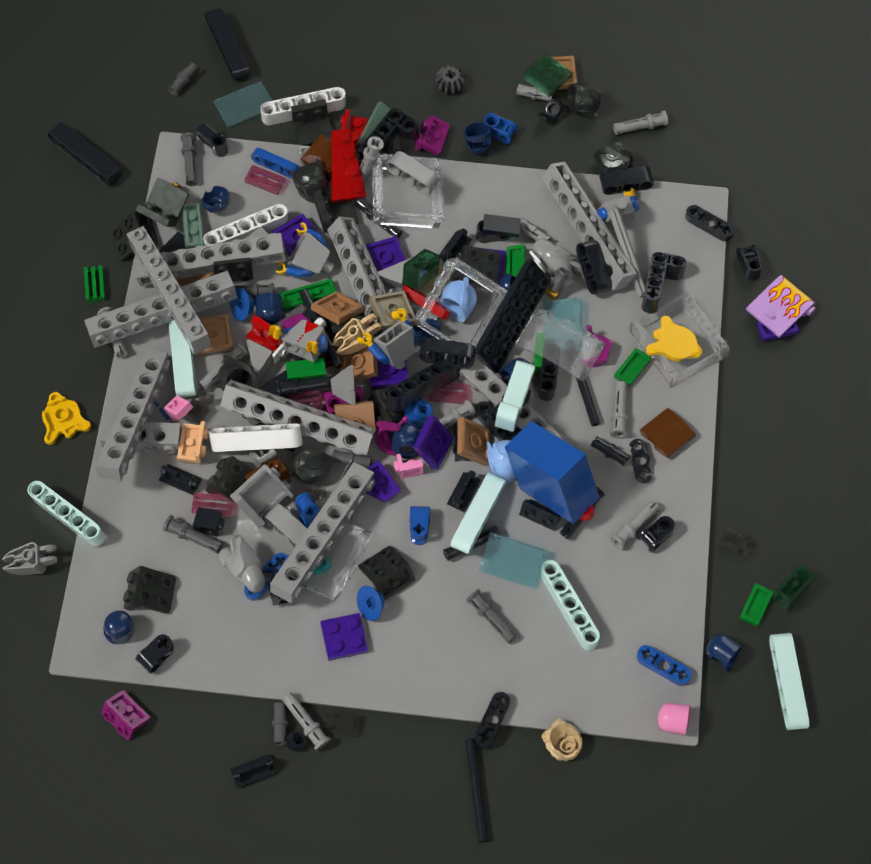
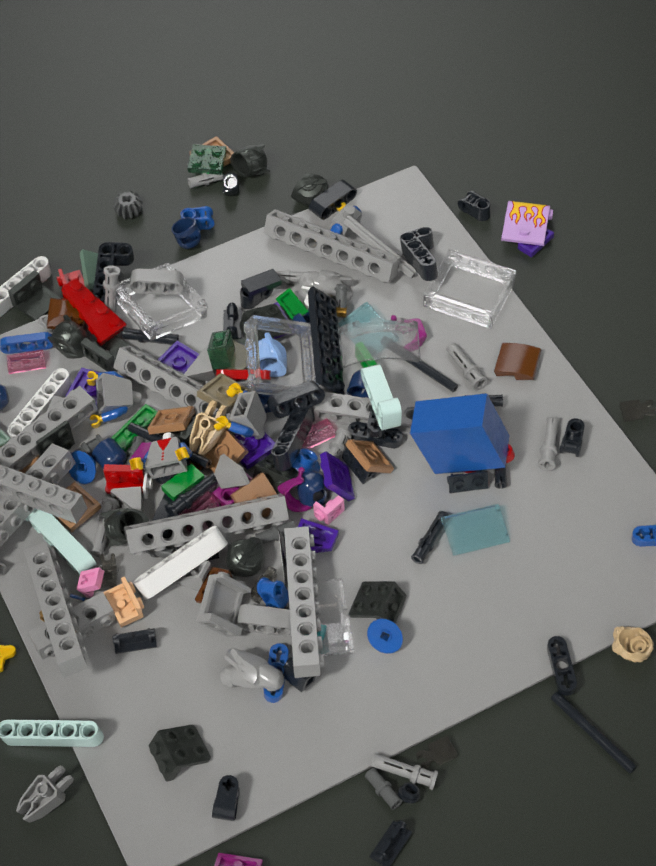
camera: 30 degrees left, 10 degrees down
(119, 627) = (175, 796): dark blue helmet -> none
(184, 530) = (172, 680): dark grey pin -> none
(208, 521) = (189, 659): black brick -> none
(213, 497) = (181, 647): clear pink tile -> none
(228, 477) = (180, 611): pearl dark grey bracket -> none
(344, 636) = (382, 679): dark purple plate -> none
(419, 523) = (375, 548): blue piece -> none
(432, 135) = (145, 252): magenta bracket -> none
(464, 491) = (390, 500): black hinge -> none
(478, 513) = (419, 509): light aqua beam -> none
(485, 609) = (485, 581): dark grey pin -> none
(499, 461) = (405, 456): light blue helmet -> none
(547, 380) = (393, 376): black beam -> none
(570, 614) = (557, 542): light aqua beam -> none
(594, 267) = (352, 270): black beam -> none
(632, 367) = (449, 329): green tile -> none
(643, 452) = (516, 401): black piece -> none
(649, 121) = (314, 151): light grey pin -> none
(674, 342) = (470, 289): yellow tile -> none
(709, 229) = (410, 191): black beam -> none

